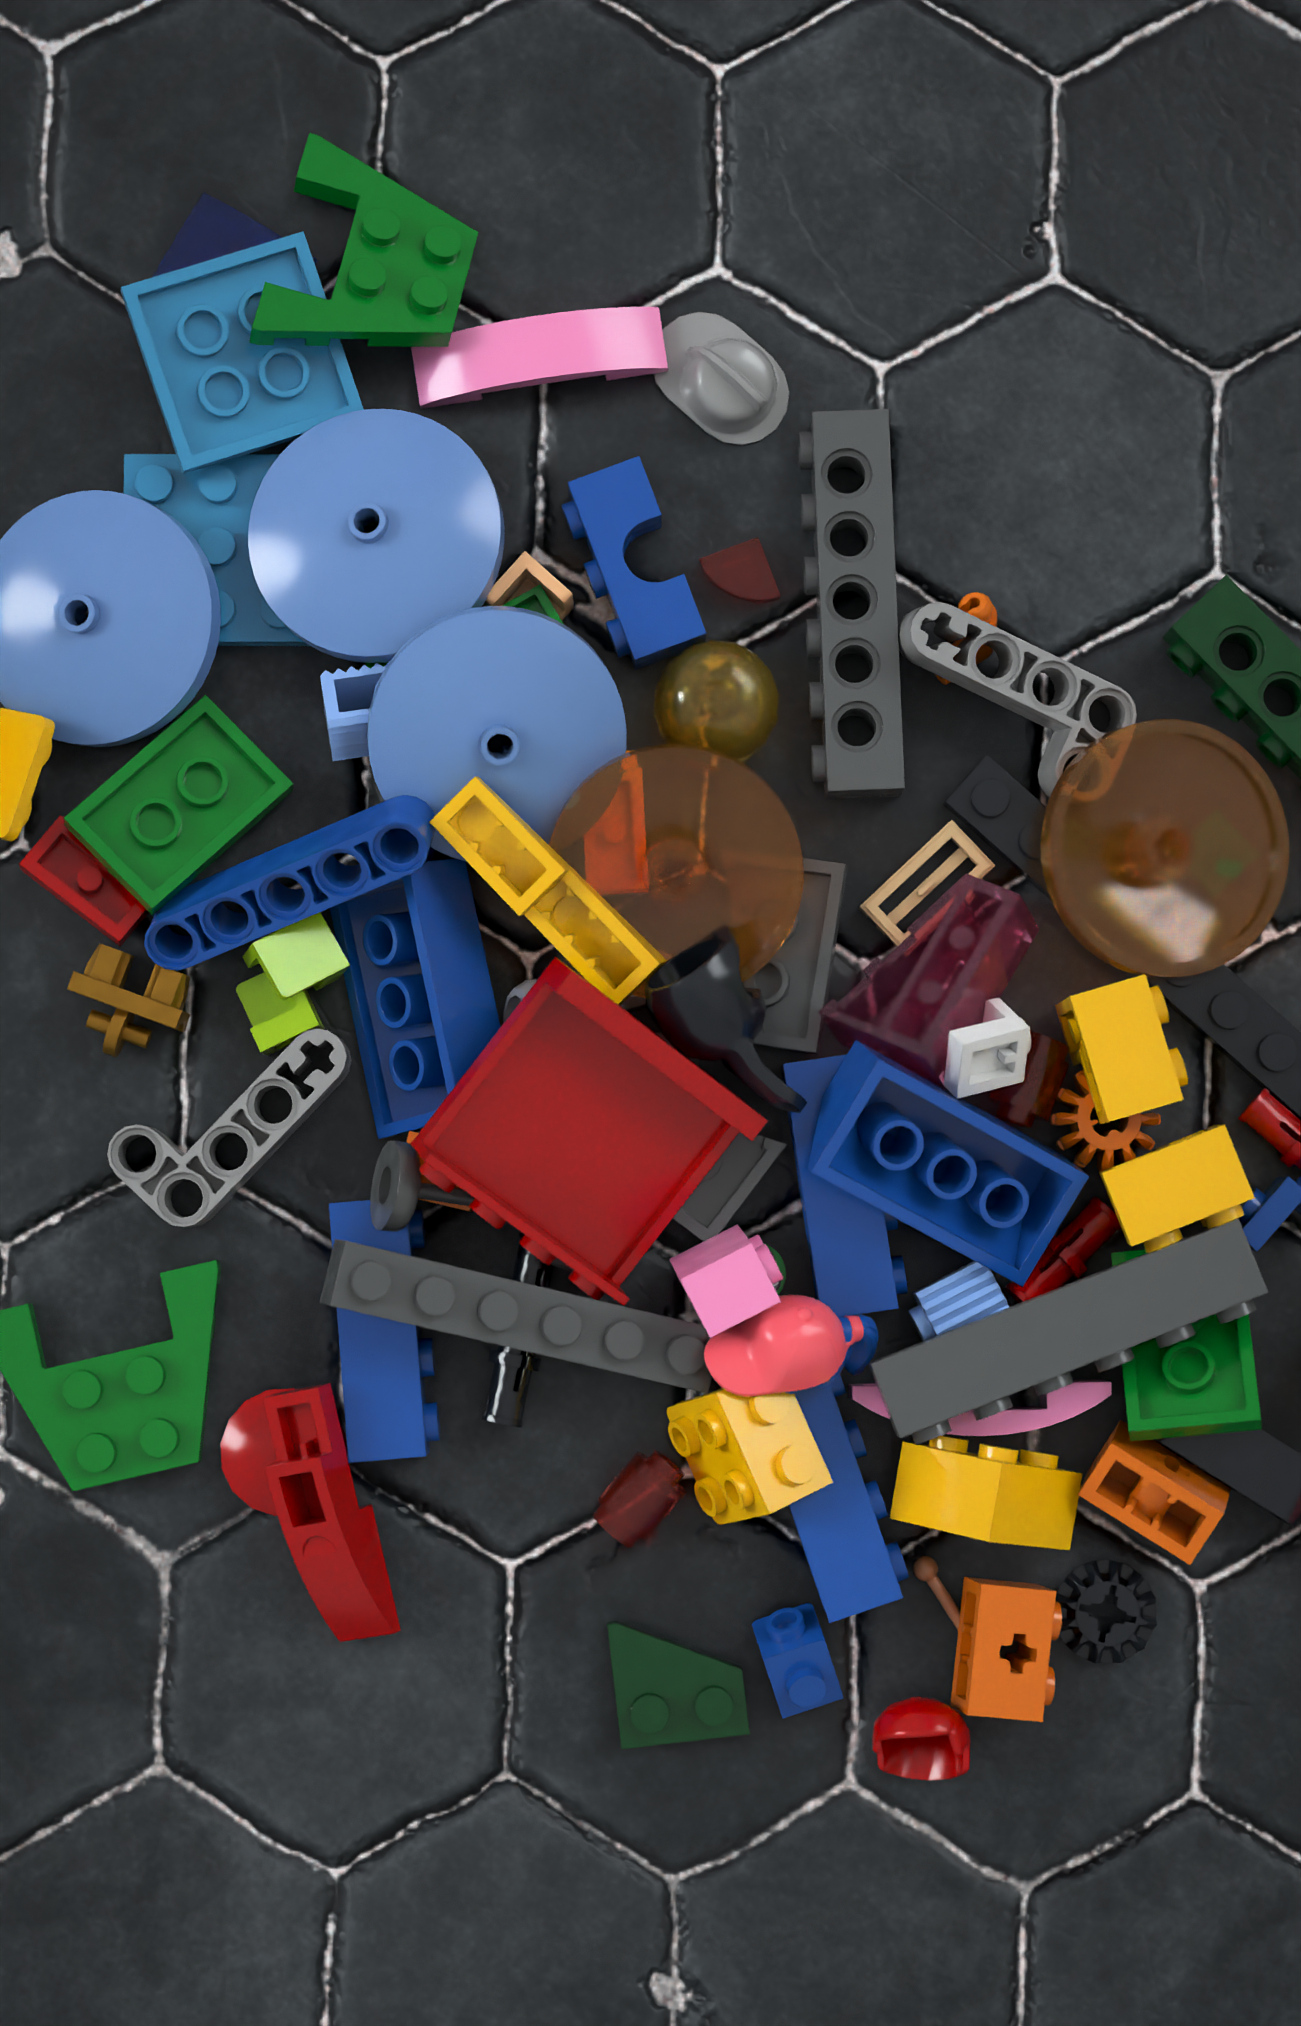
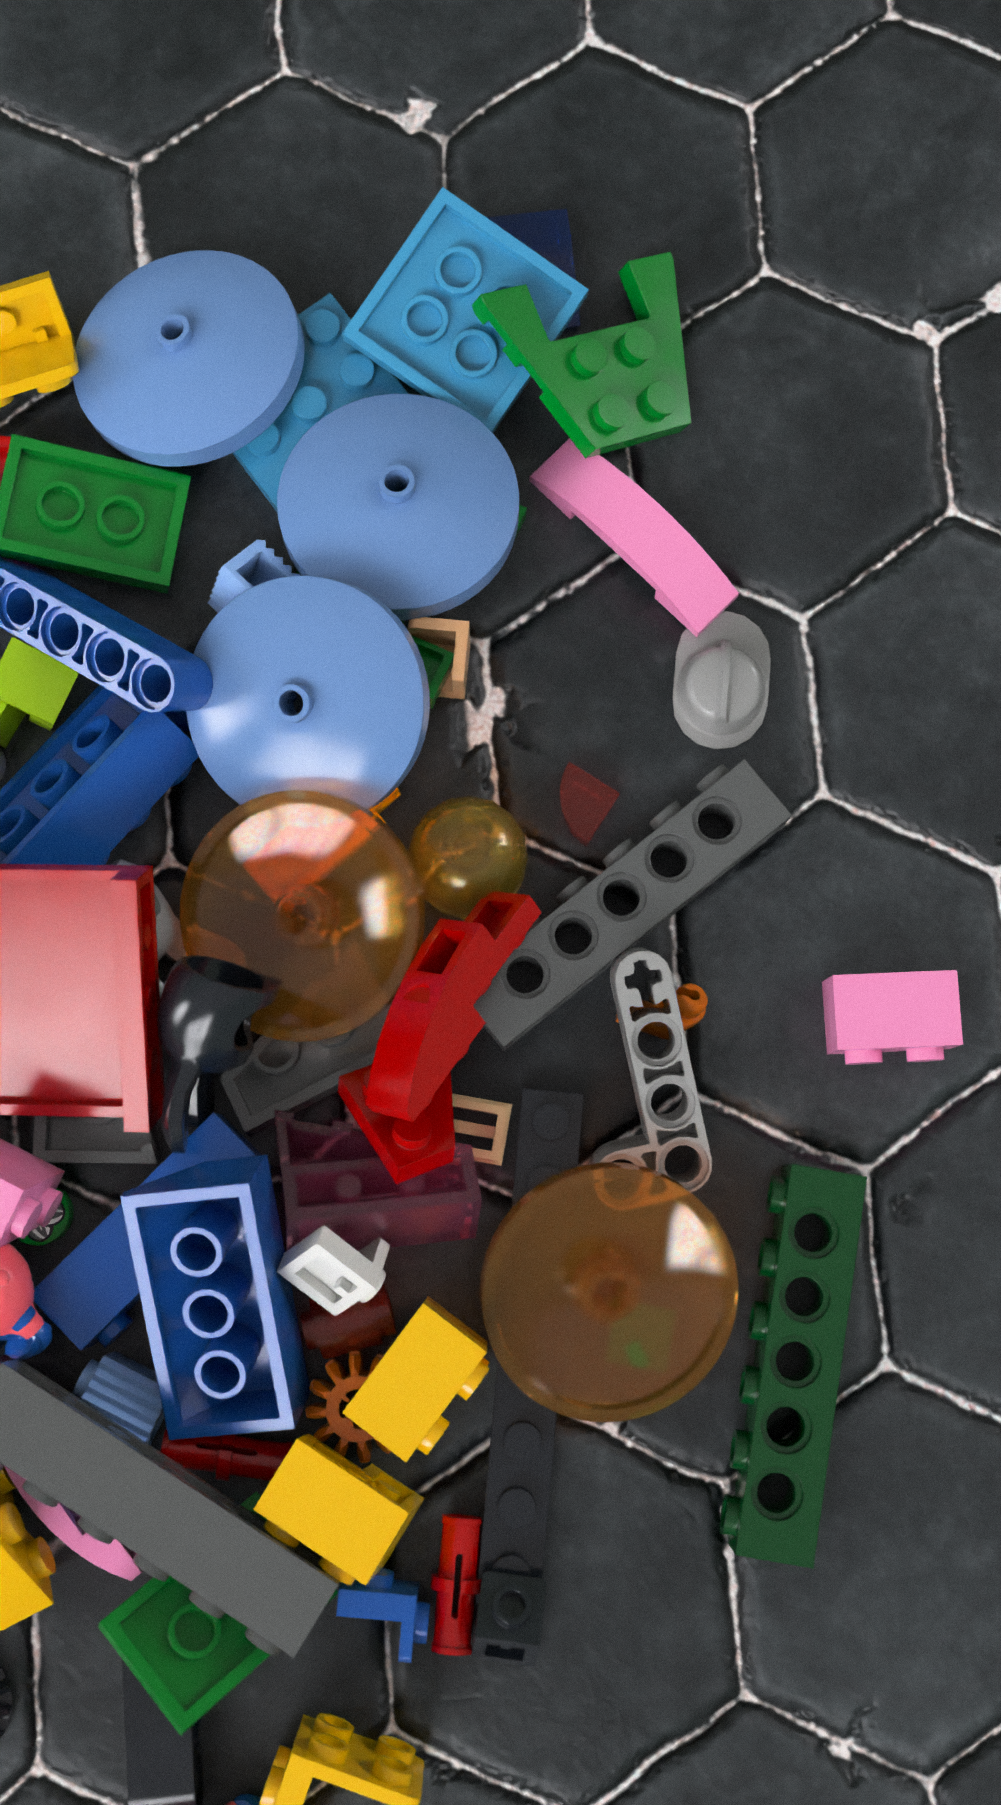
camera: 55 degrees right, 5 degrees down
(547, 891) = (209, 840): yellow slope -> none
(611, 512) = (552, 671): blue arch -> none
(836, 814) = (434, 1008): none -> red slope
(896, 904) = (403, 1145): none -> red wing
(1108, 453) = (892, 1014): none -> bright pink brick
(1155, 1493) = (73, 1682): orange brick -> none

